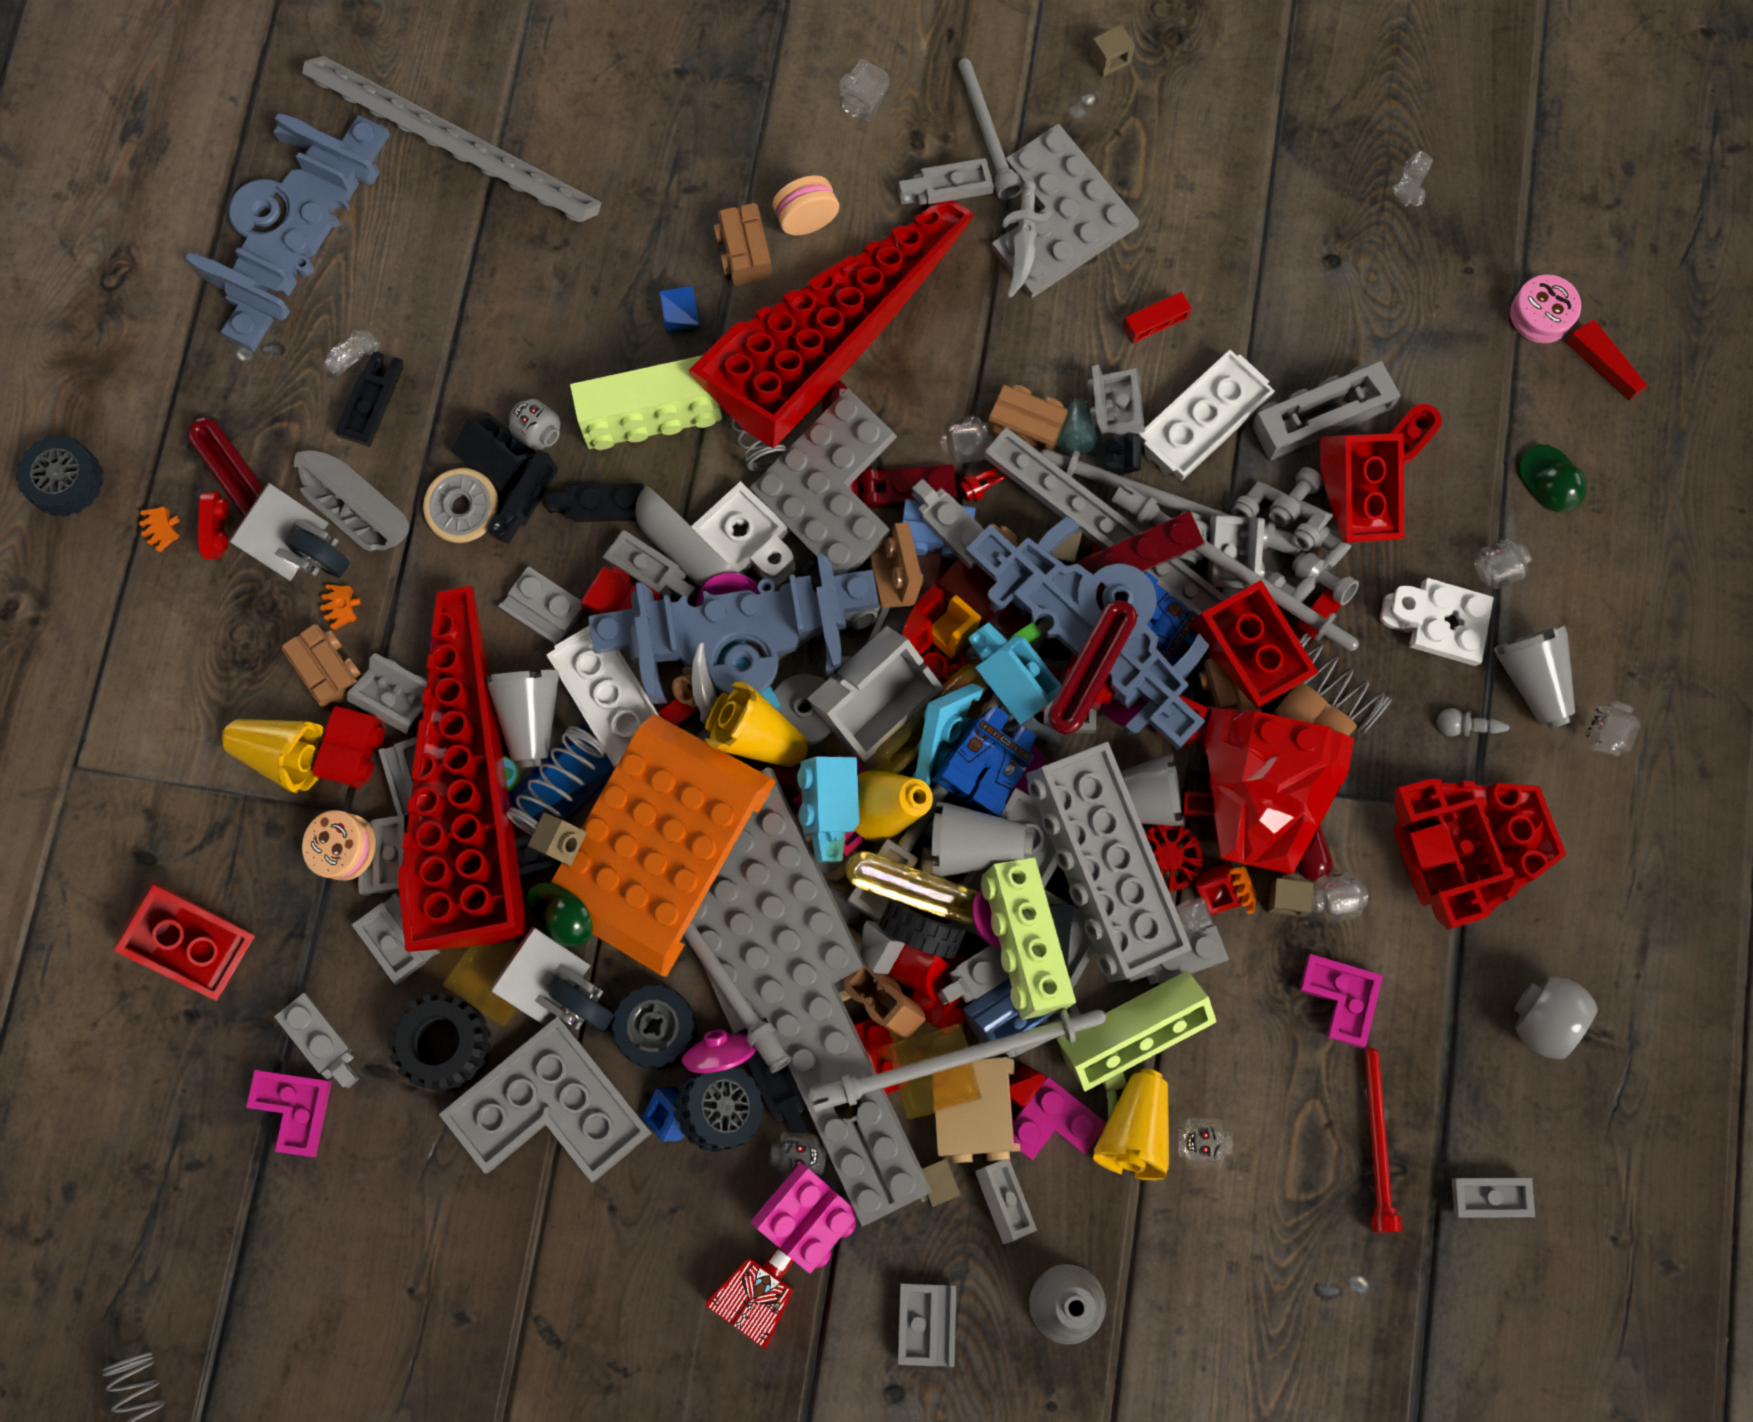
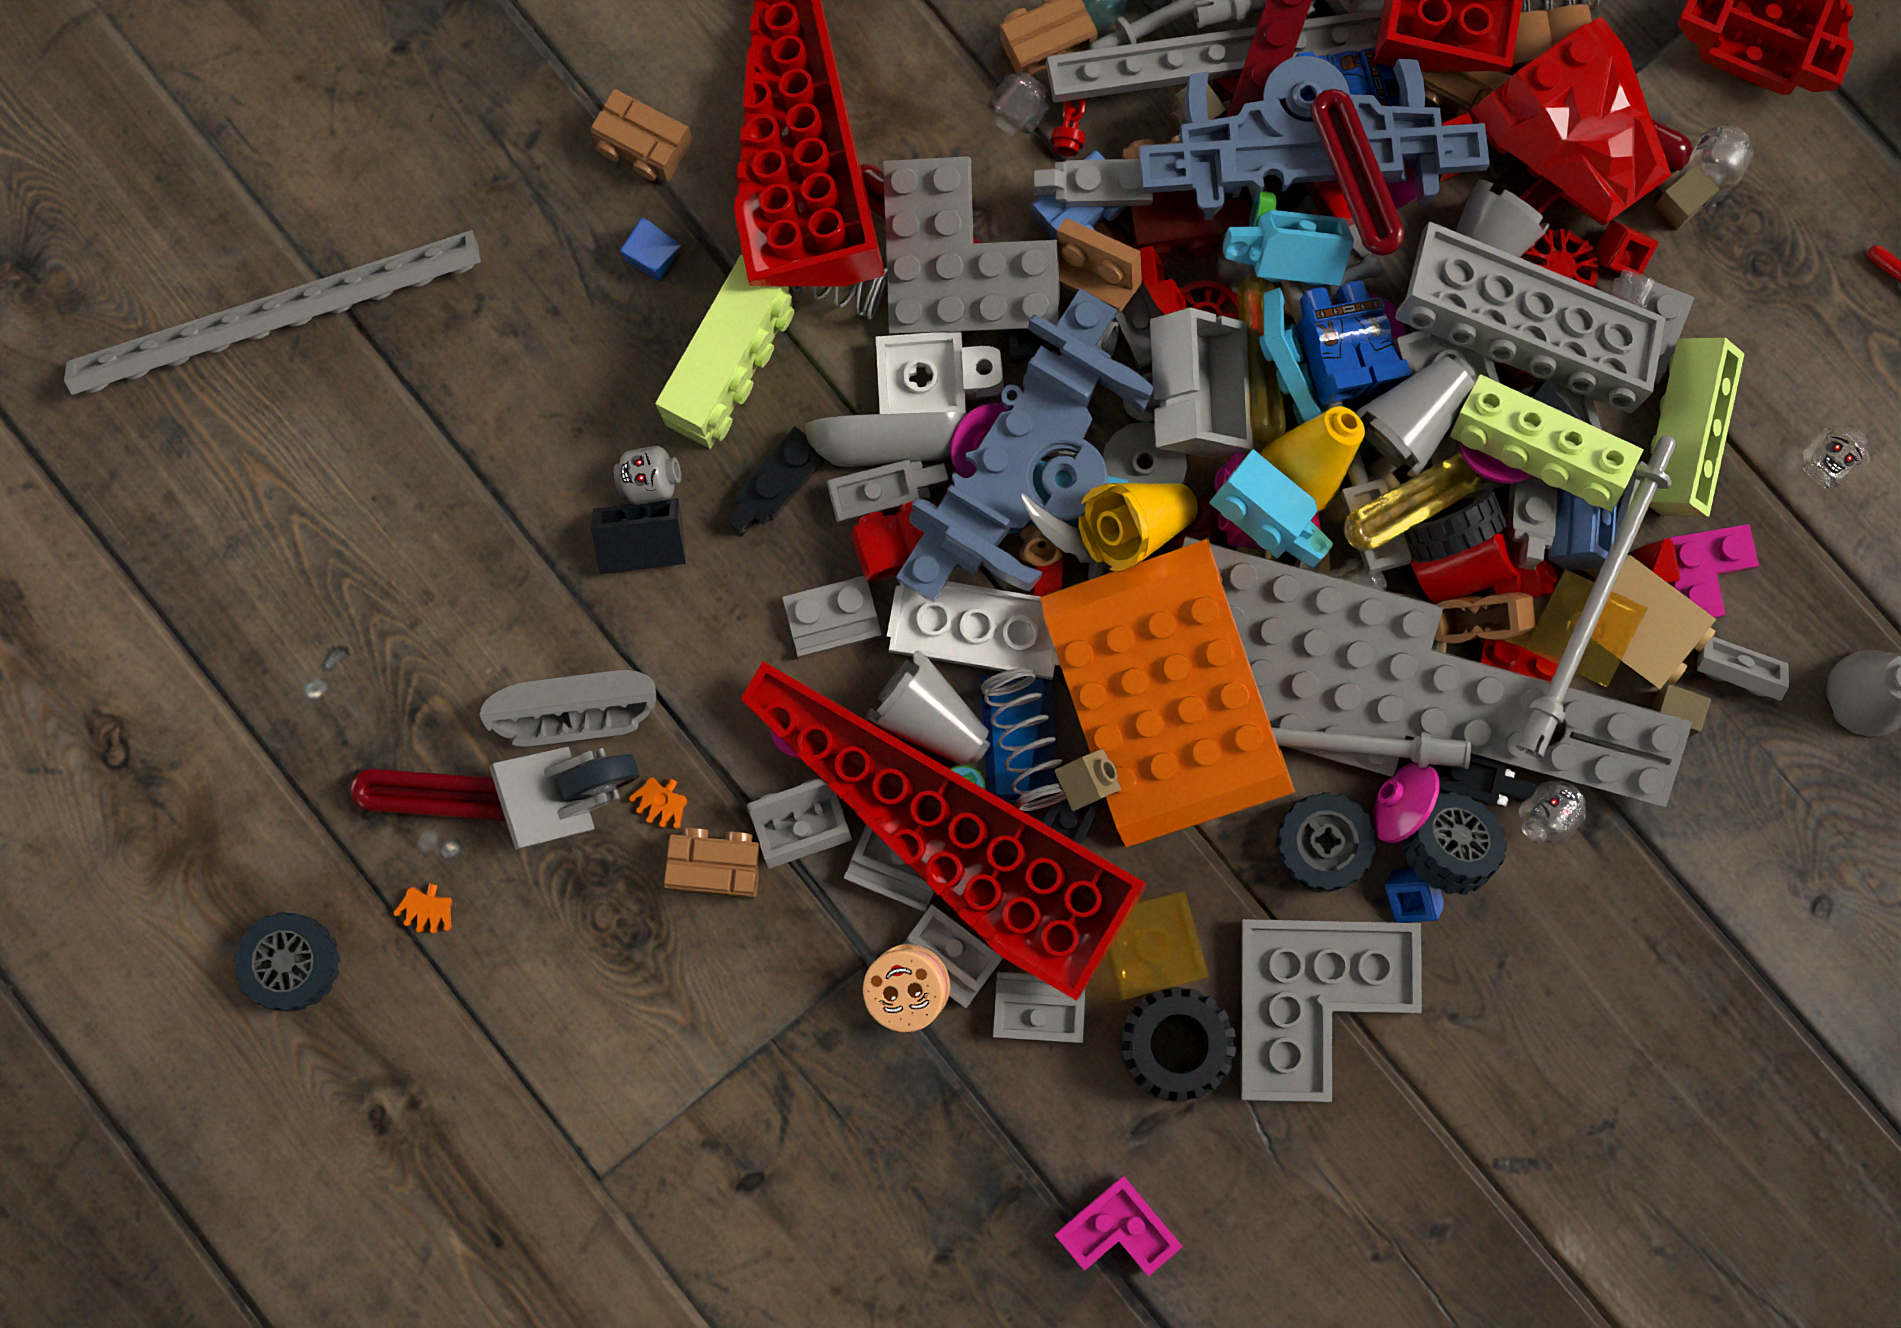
camera: 45 degrees left, 5 degrees up
(183, 941) = (868, 1206): red slope -> none
(211, 533) = (461, 843): red plate -> none
(277, 749) = (760, 971): yellow cone -> none
(311, 194) = (241, 566): sand blue piece -> none
(318, 1040) = (1072, 1156): light grey hinge -> none
(348, 748) = (816, 904): red brick -> none
(350, 351) = (409, 587): clear arm -> none
(369, 400) = (479, 610): black hinge -> none
(449, 487) = (636, 616): light grey wheel -> none
(524, 498) = (712, 547): black hinge -> none
(544, 978) = (1198, 905): light grey plate -> none
(561, 914) = (1151, 837): dark green cap -> none
(755, 1297) = (1644, 953): torso -> none
(805, 205) = (657, 47): light nougat head -> none
(805, 1218) = (1617, 849): dark pink plate -> none
(879, 948) = (1437, 580): light grey slope -> none
(900, 484) = (1012, 193): dark red plate -> none
(927, 1325) = (1791, 826): light grey plate -> none
(955, 627) = (1191, 264): light orange panel -> none
(1110, 1086) = (1726, 500): yellowish green hand -> none
(1138, 1129) = (1779, 499): yellow cone -> none
(1244, 888) = (1645, 227): orange piece -> none
(1354, 996) = (1811, 220): dark pink plate -> none
(1434, 846) = (1754, 36): red slope -> none

